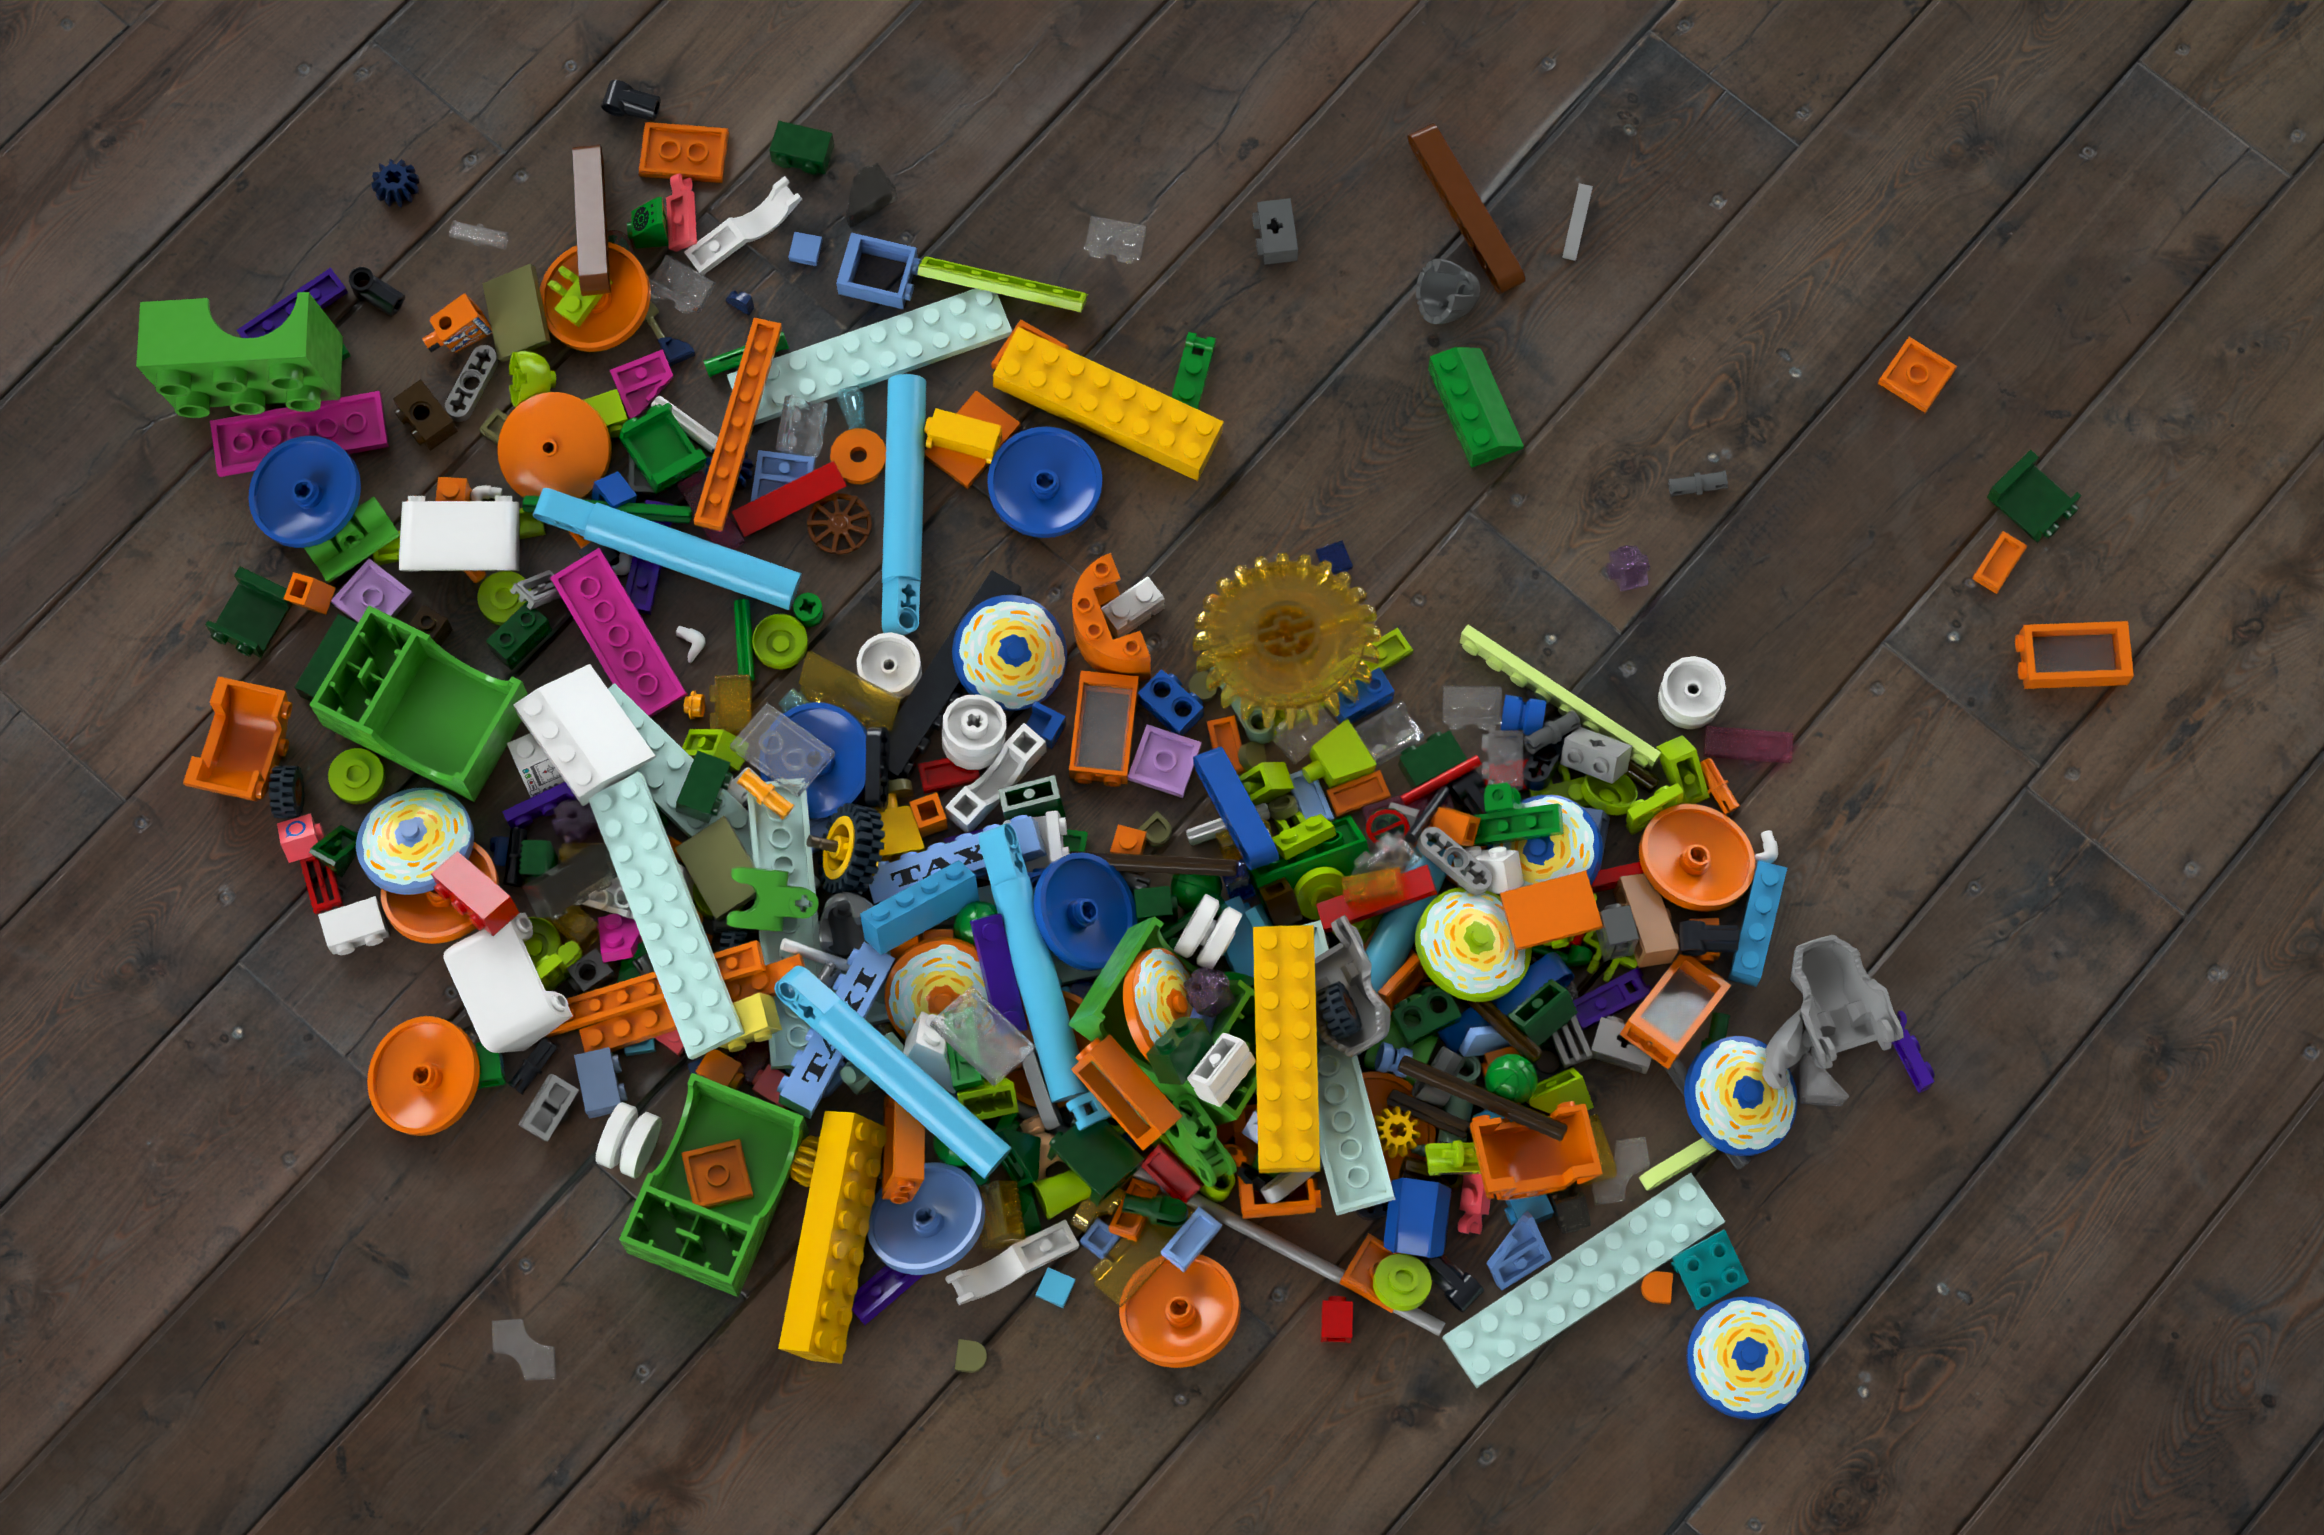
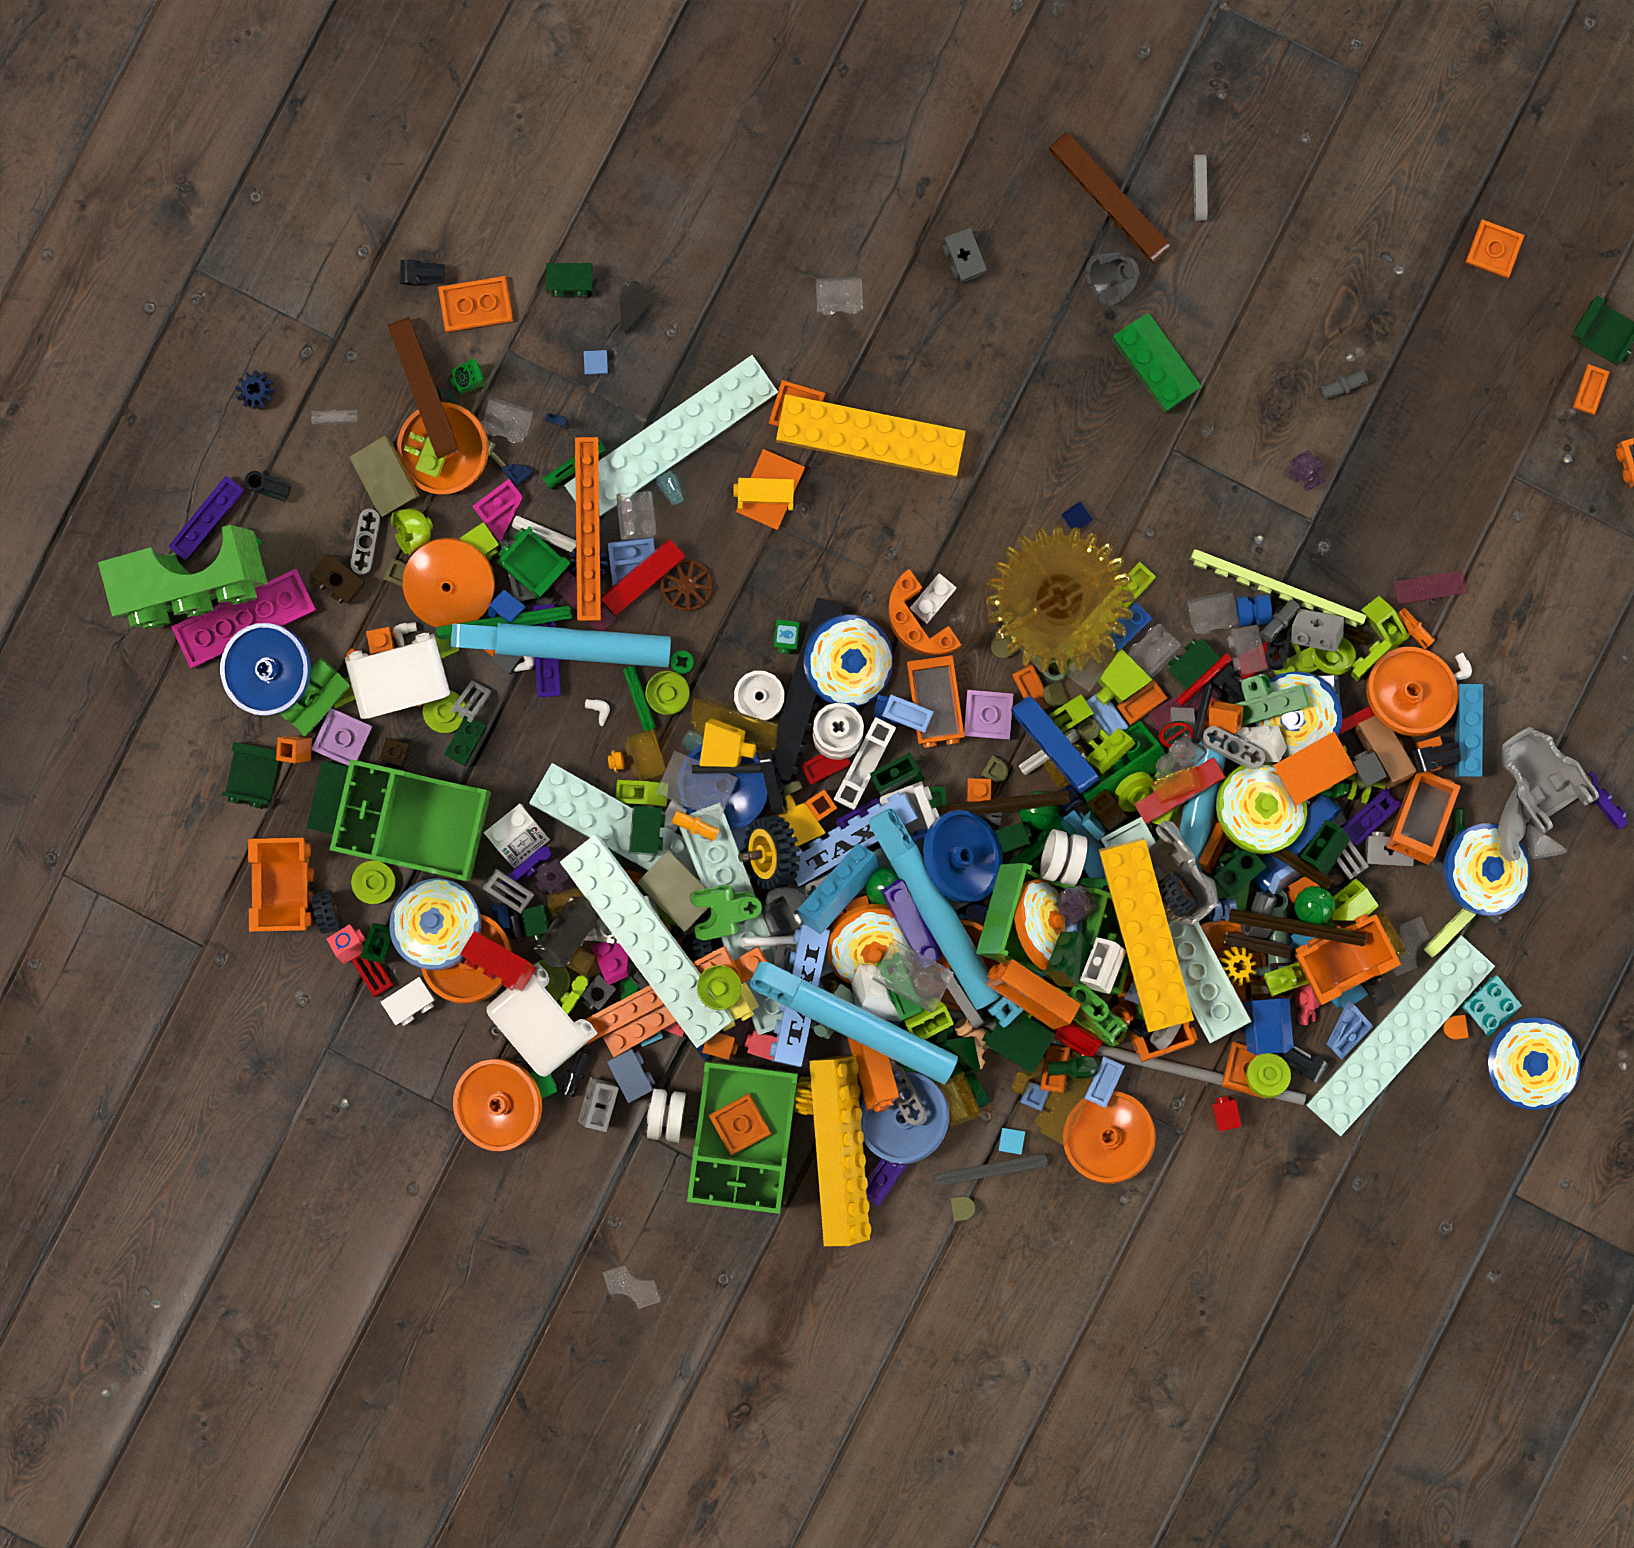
camera: 15 degrees left, 15 degrees up
(457, 325) = (348, 494): orange torso -> none
(499, 800) = (492, 880): none -> light grey tile
(584, 732) = (543, 812): white slope -> none
(618, 633) = (542, 721): dark pink plate -> none
(681, 214) = (489, 359): coral plate -> none
(741, 982) = (722, 983): none -> lime piece
(747, 228) = (542, 359): white piece -> none
(822, 736) = (741, 768): none -> pearl dark grey piece
(827, 706) = (724, 745): none -> yellow torso
(859, 440) = (682, 512): orange tile -> none
(863, 244) = (685, 358): medium blue window -> none
(903, 503) = (733, 560): medium azure piece -> none
(943, 609) = (786, 636): none -> brick
(943, 1198) = (918, 1106): none -> light grey beam
(1002, 284) = (759, 355): lime tile -> none
(1013, 1263) = (976, 1131): white piece -> none
(1019, 1317) = (990, 1170): none -> dark grey axle
(1045, 482) = (838, 513): blue dish -> none
(1060, 1192) = (996, 1072): lime plant -> none
(1064, 730) = (907, 713): none -> light blue tile
(1165, 708) = (978, 673): blue brick -> none
(1193, 370) = (928, 391): green plate -> none
(1687, 677) = (1392, 559): white wheel -> none

